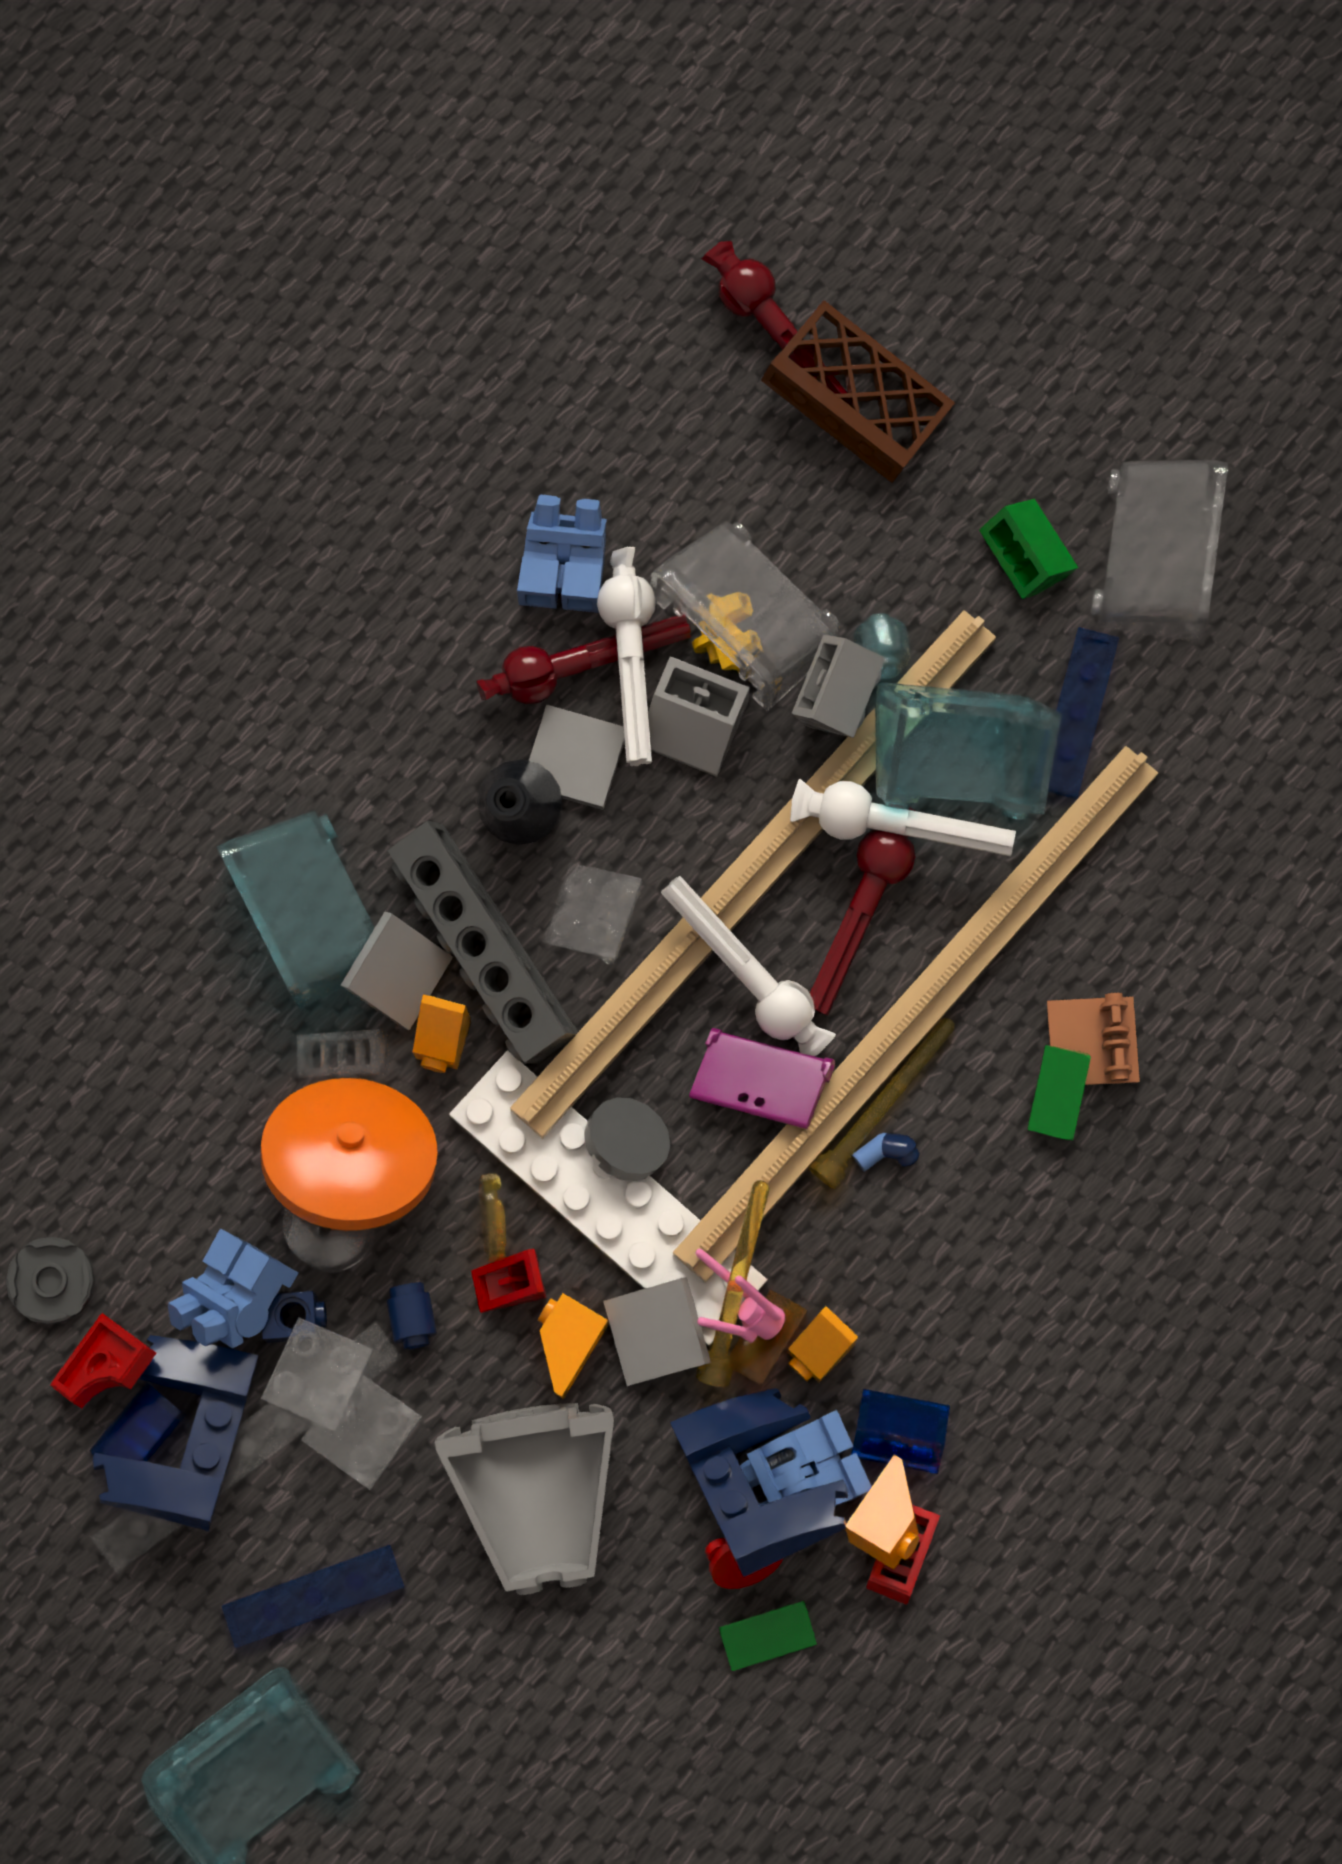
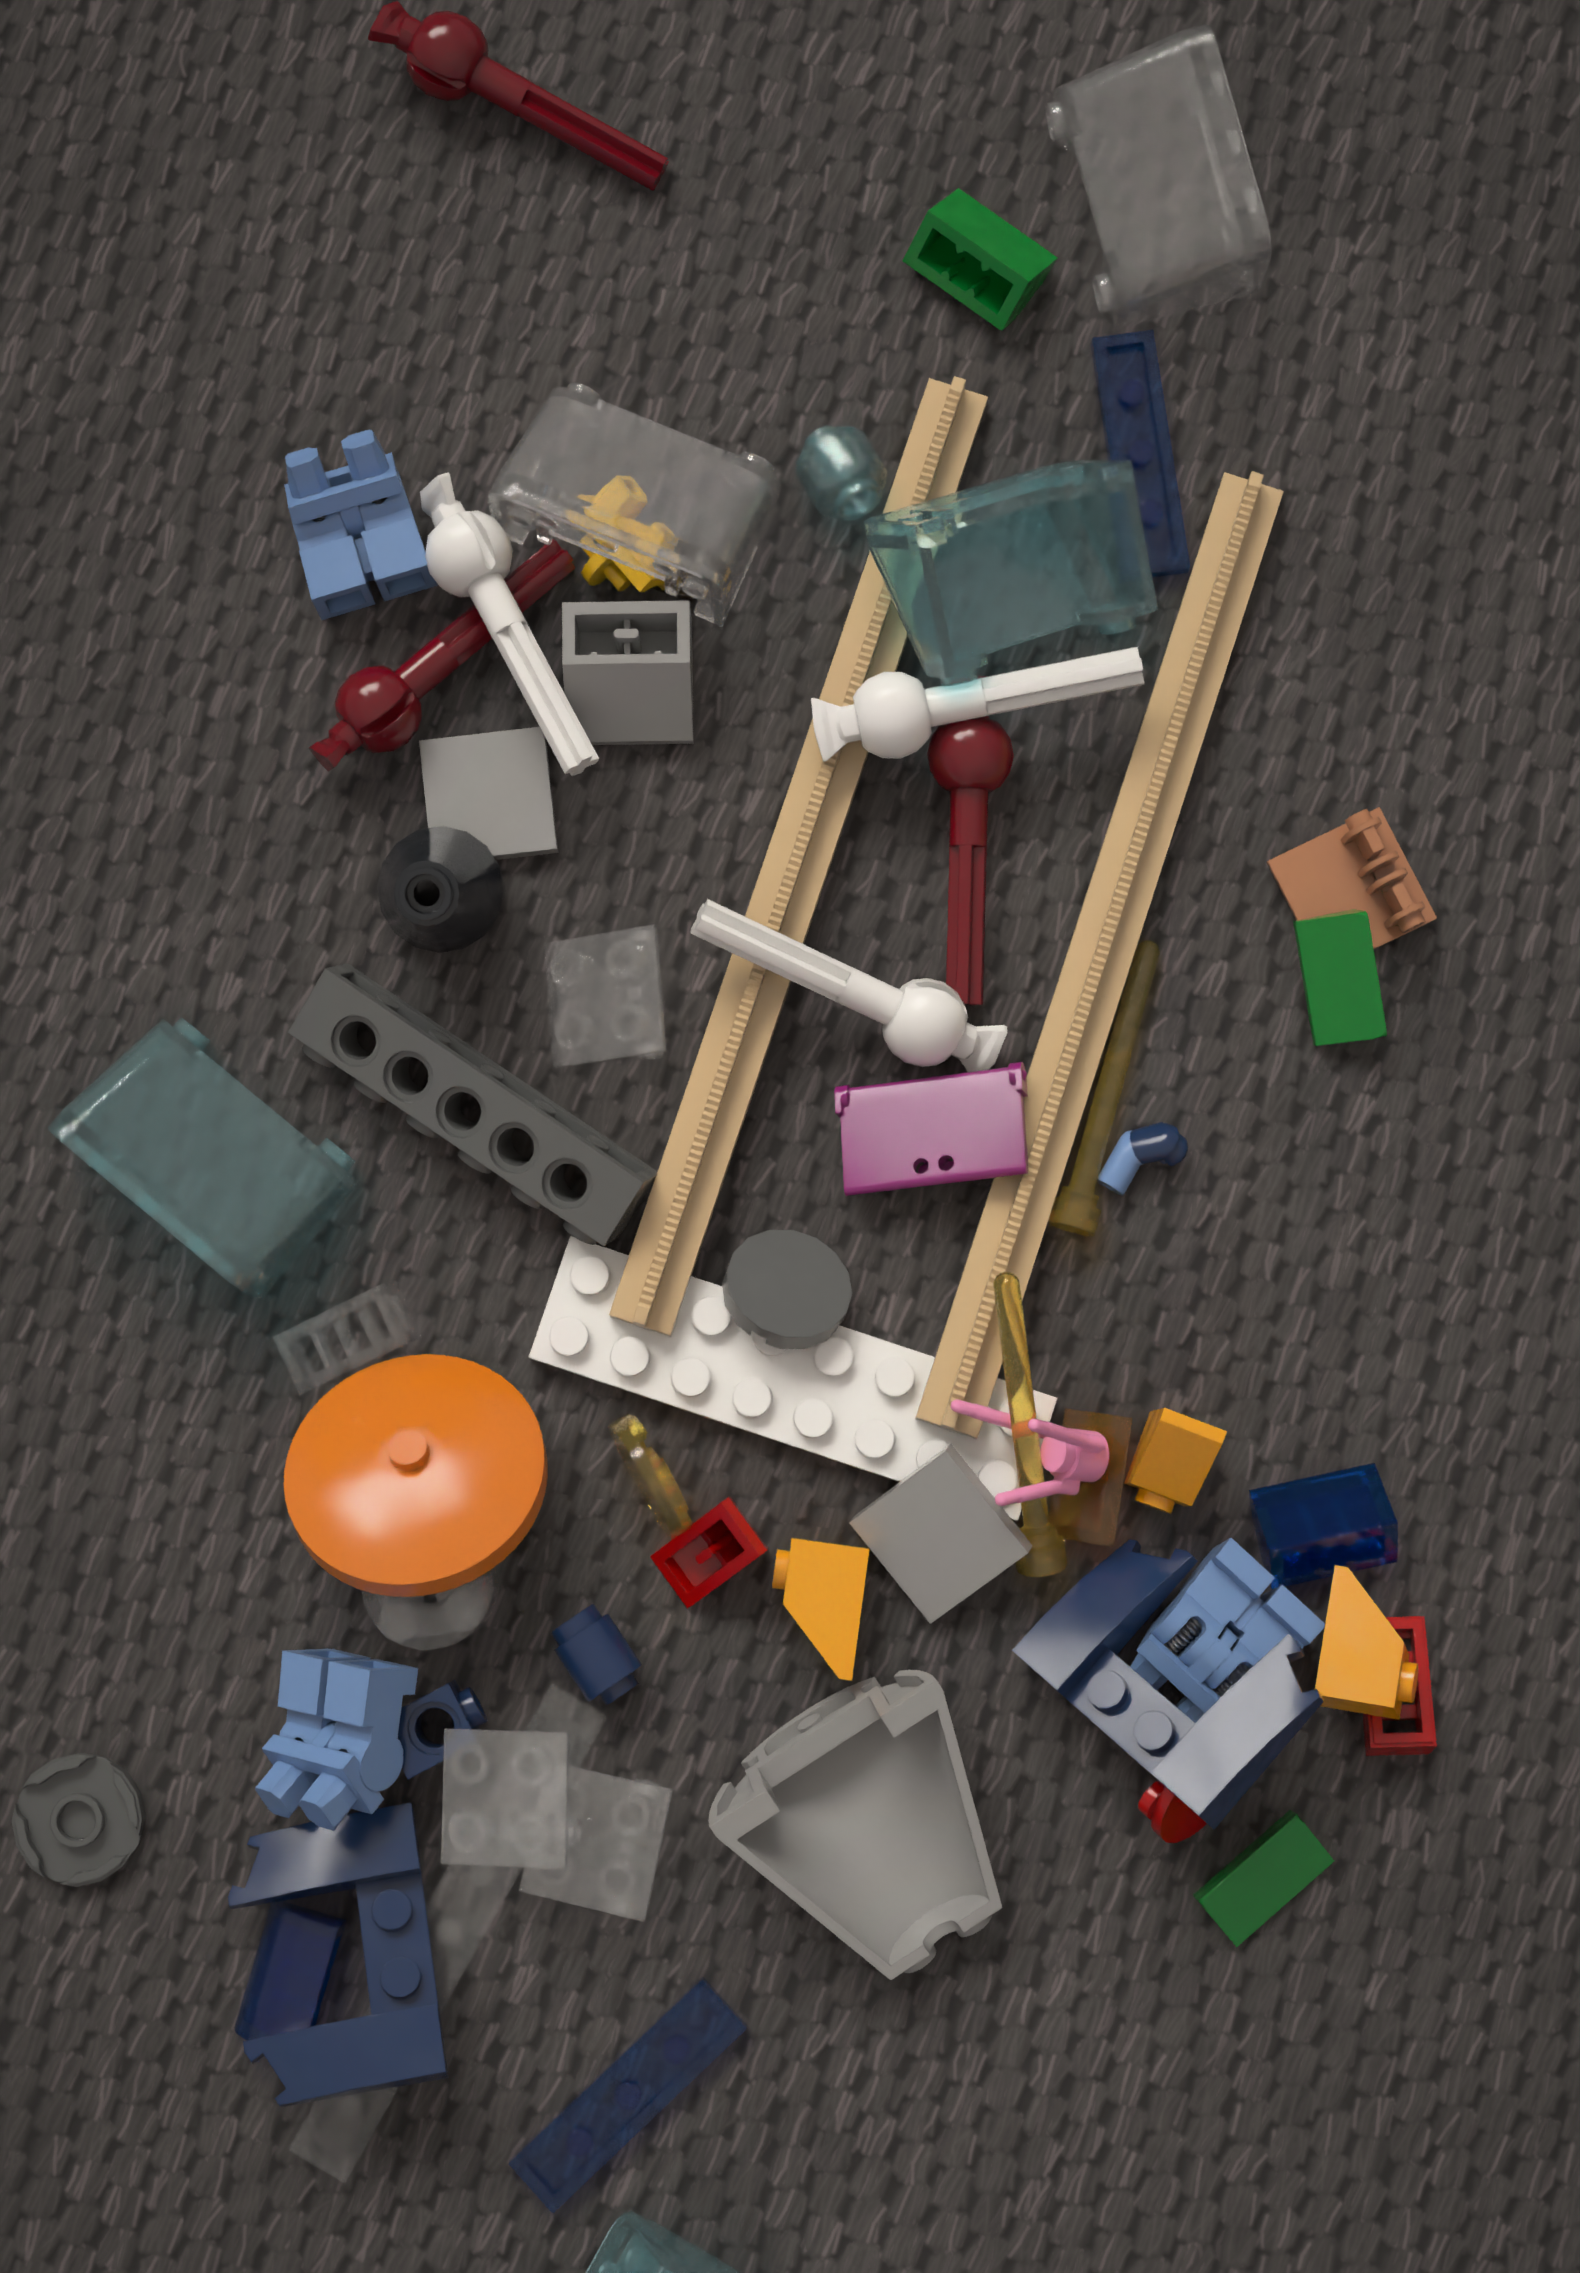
camera: 25 degrees left, 5 degrees up
(102, 1360) = (199, 1901): red tile -> none
(396, 970) = (372, 1192): light grey tile -> none
(440, 1033) = (470, 1254): light orange slope -> none
(833, 412) = (647, 176): reddish brown fence -> none
(838, 686) = (811, 548): light grey slope -> none

